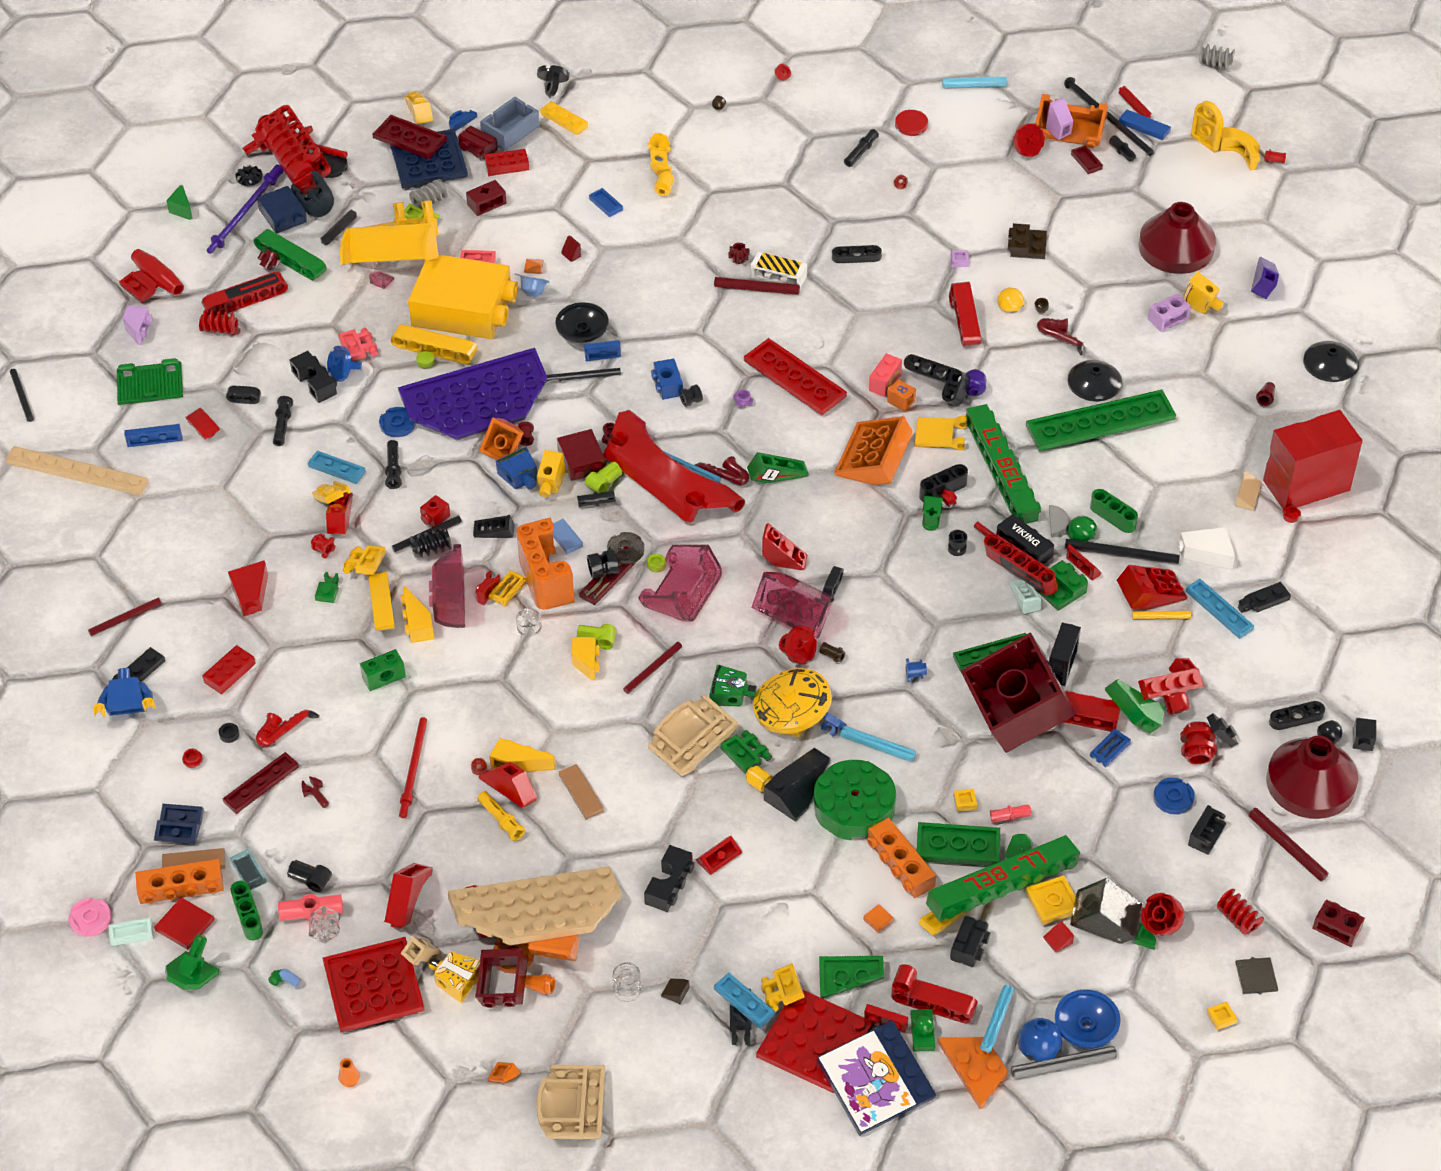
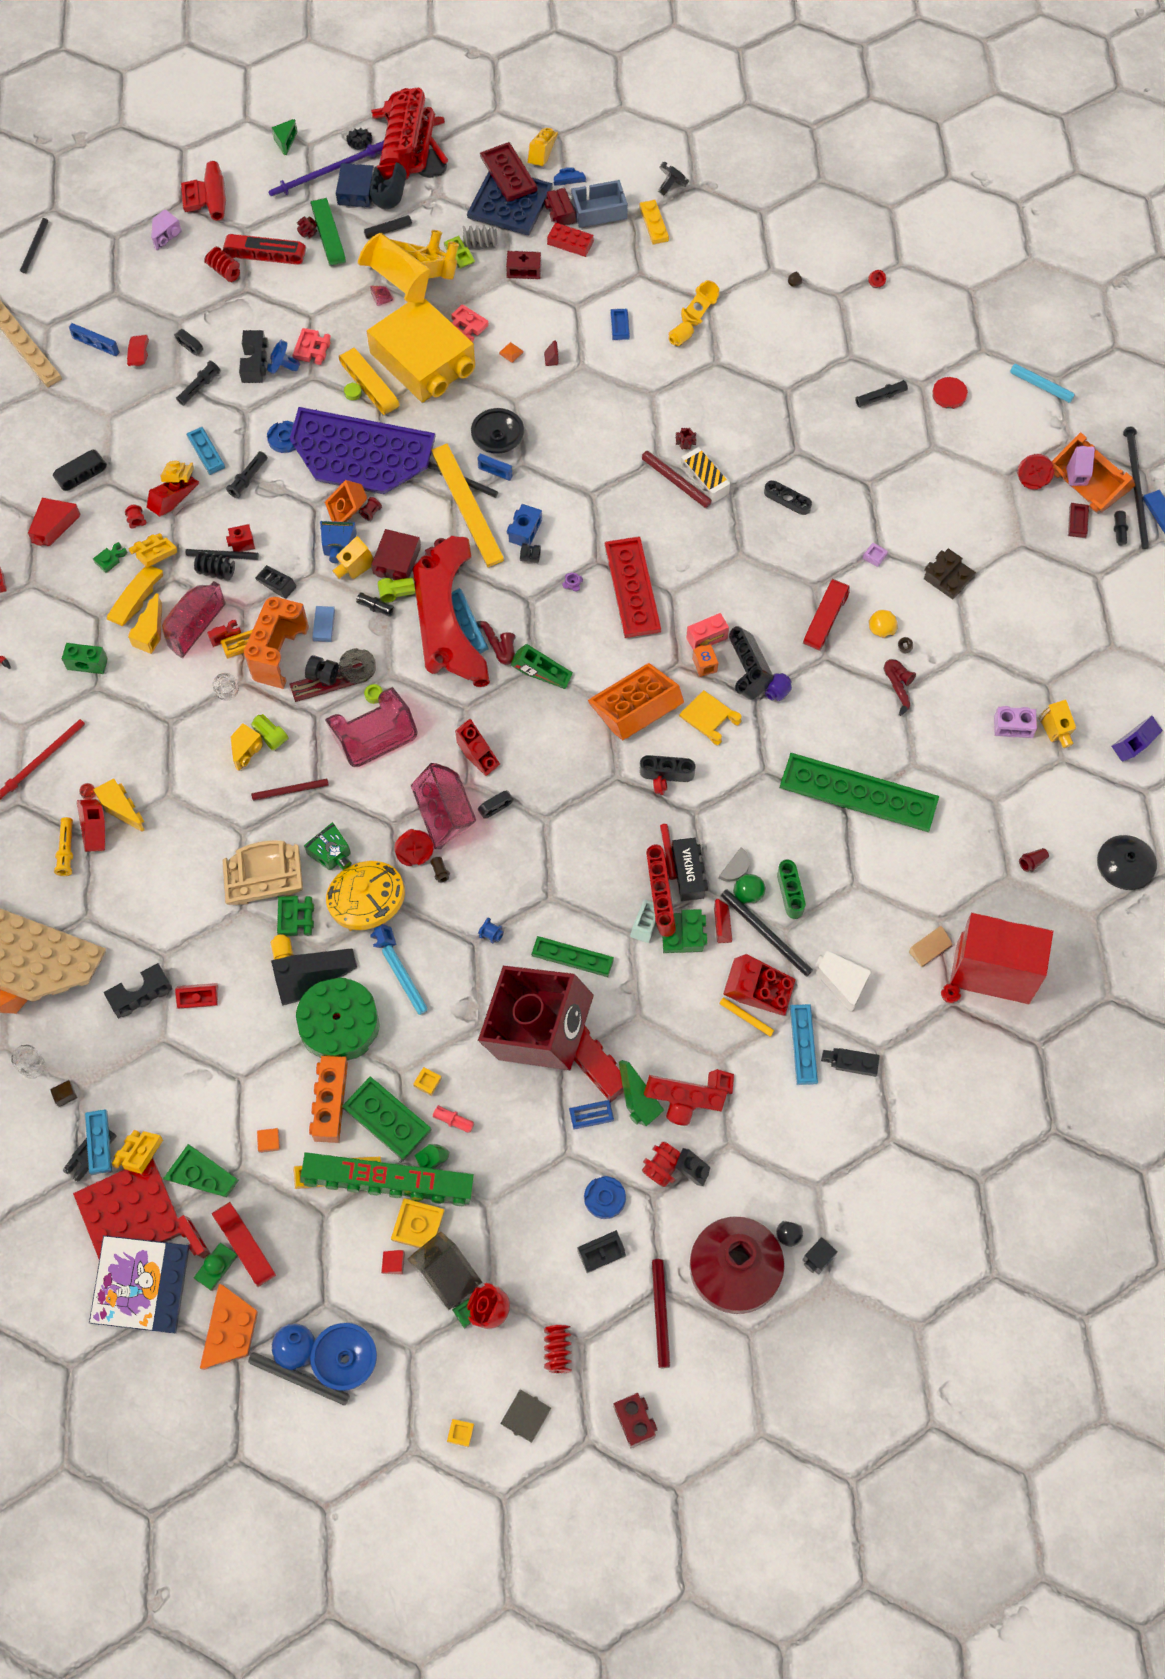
camera: 35 degrees right, 15 degrees up
(149, 382) = (134, 290): green window -> none
(237, 537) = (79, 470): none -> black beam
(532, 286) = (491, 368): medium blue piece -> none
(581, 791) = (142, 865): medium nougat tile -> none
(606, 389) = (467, 505): none -> yellow tile
(903, 184) = (887, 450): clear red hinge -> none
(931, 512) = (634, 789): green piece -> none
(957, 542) = (626, 836): black wheel -> none
(969, 941) = (317, 1215): black brick -> none
(997, 1018) = (276, 1301): medium azure axle -> none
(1001, 463) = (732, 783): green brick -> none
(1065, 651) = (621, 1001): black window -> none
(1094, 380) = (890, 757): black dish -> none
(1177, 240) = (1086, 654): dark red cone -> none
(1303, 709) = (782, 1203): black beam -> none

